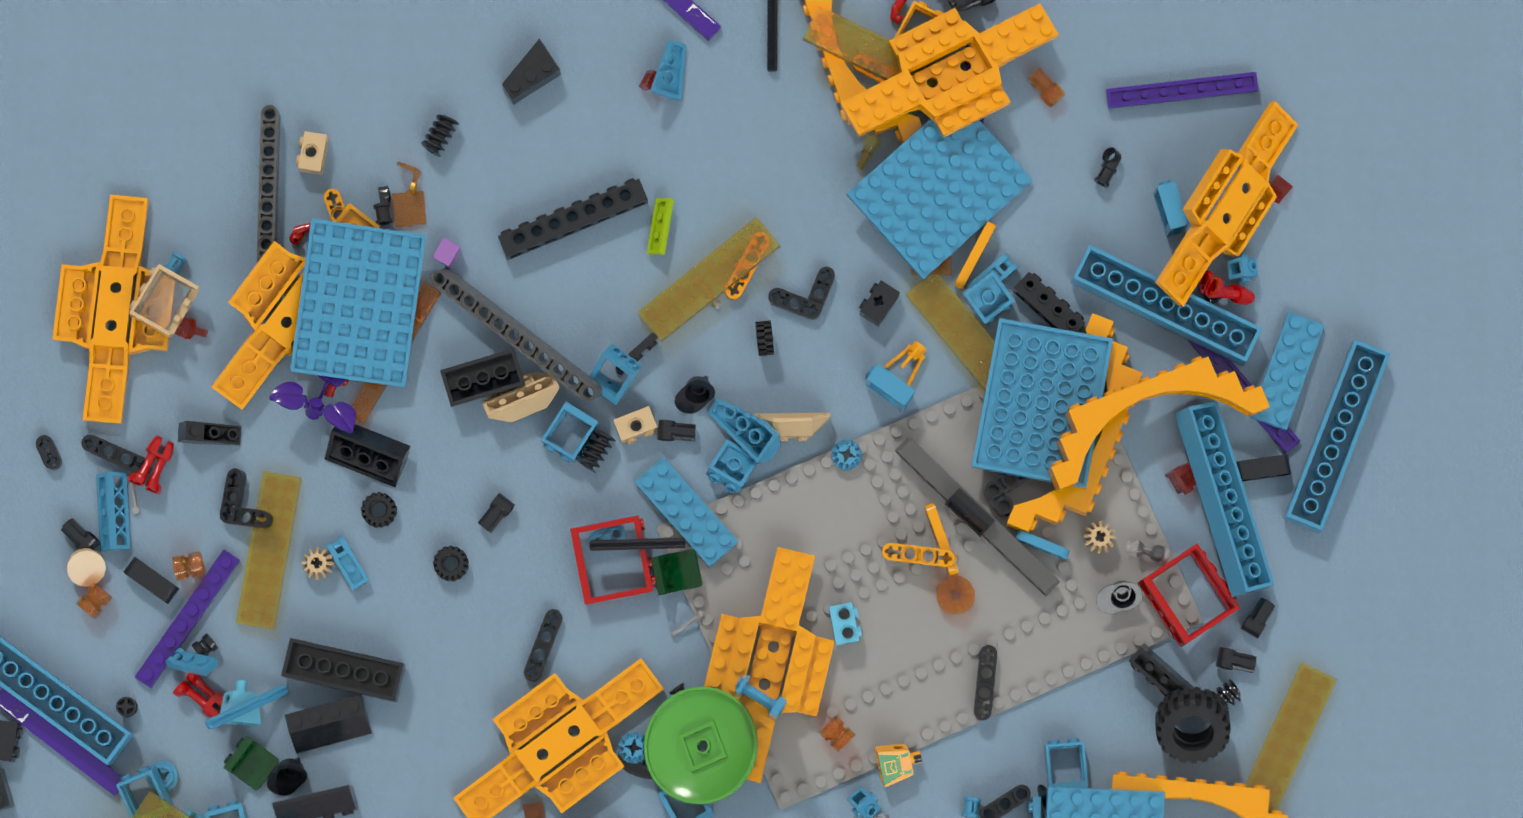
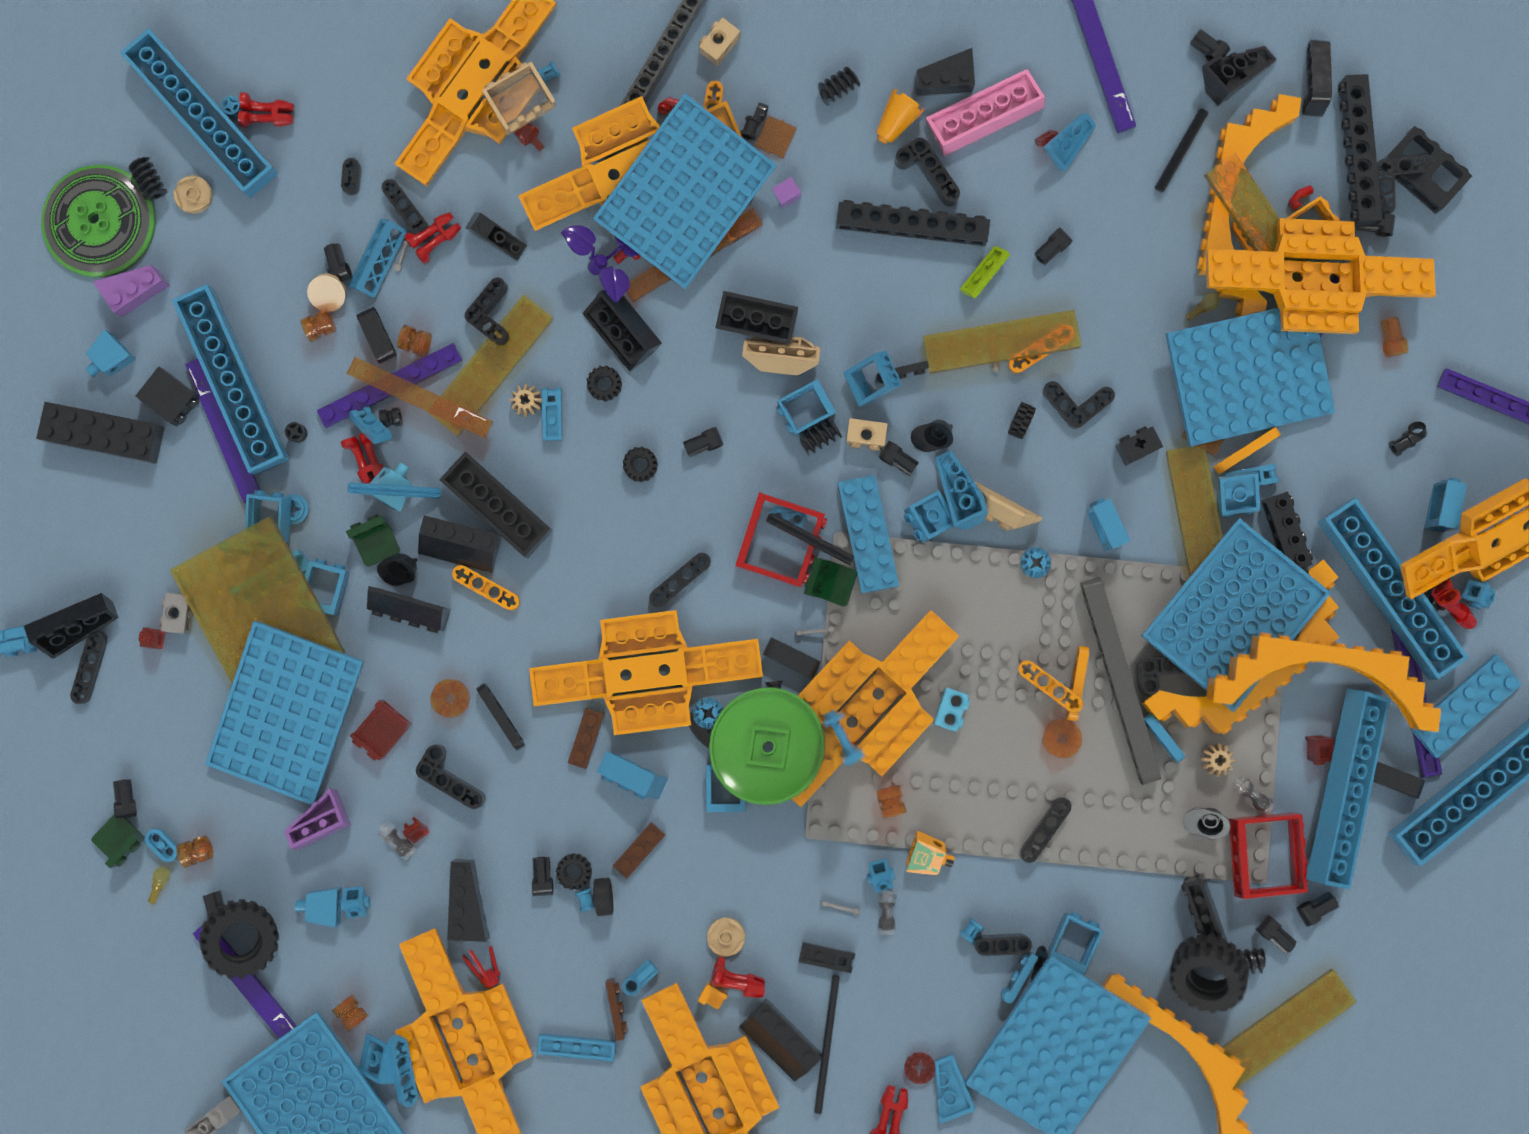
camera: 35 degrees right, 5 degrees up
(222, 613) = (420, 397): none -> clear orange tile
(374, 749) = (487, 585): none -> light orange beam
(416, 174) = (791, 117): clear orange piece -> none
(507, 134) = (897, 116): none -> light orange cone
(524, 334) = (813, 302): dark grey beam -> none
(564, 166) = (930, 173): none -> black beam
(582, 86) = (986, 112): none -> bright pink arch
(680, 658) = (791, 658): none -> black beam
(709, 167) = (1056, 243): none -> black piece
(915, 352) = (1145, 506): light orange plant -> none
(969, 512) = (1117, 675): black piece -> none

